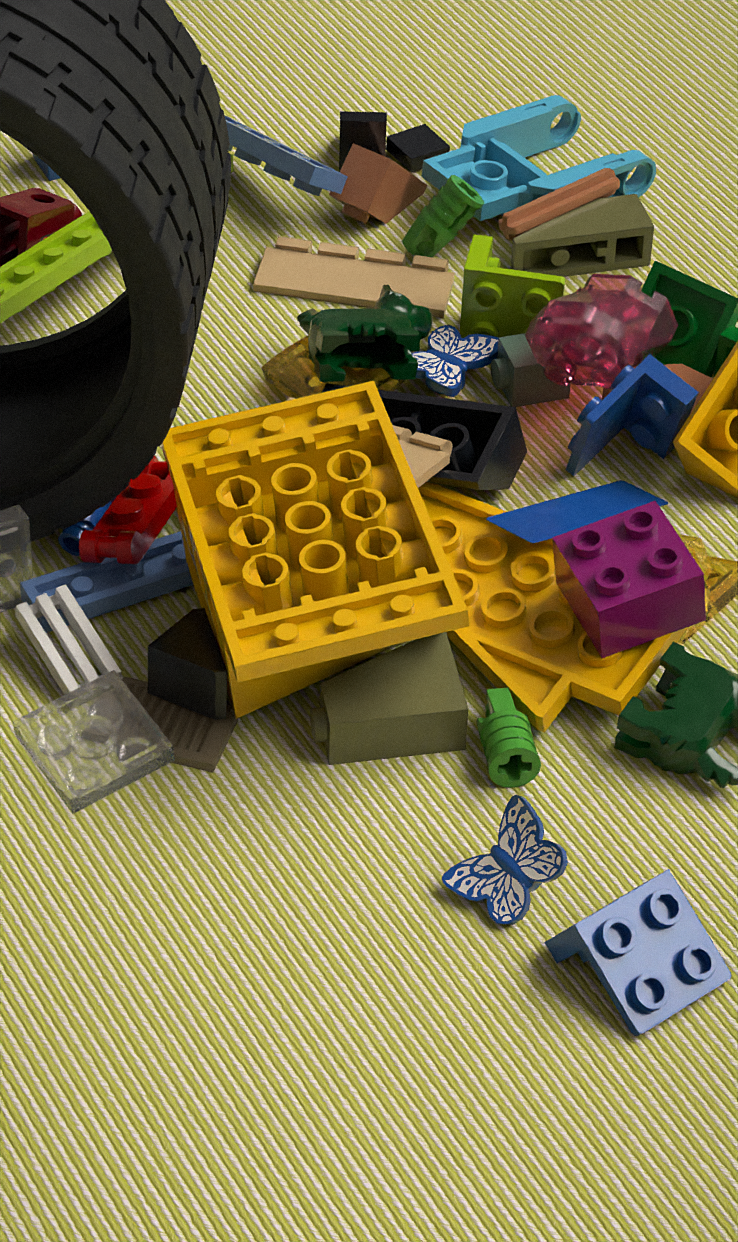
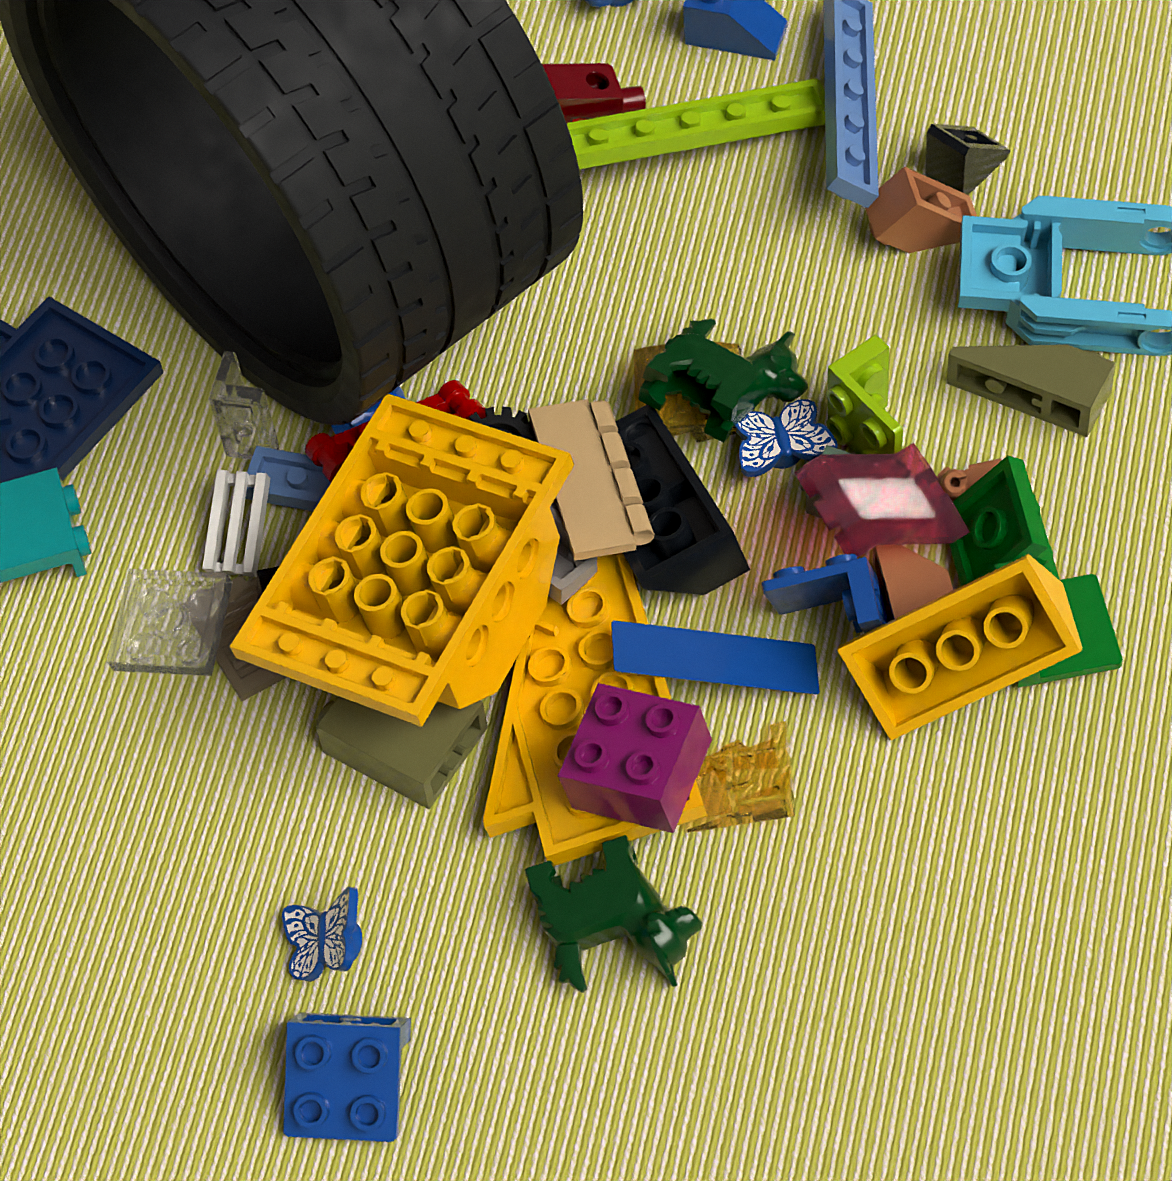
camera: 50 degrees right, 15 degrees up
(341, 278) = (803, 289): tan windscreen -> none
(415, 145) = (1014, 185): black tile -> none
(442, 217) = (925, 285): bright green hinge -> none
(507, 741) = (449, 824): bright green hinge -> none
(534, 213) = (1033, 332): nougat axle -> none

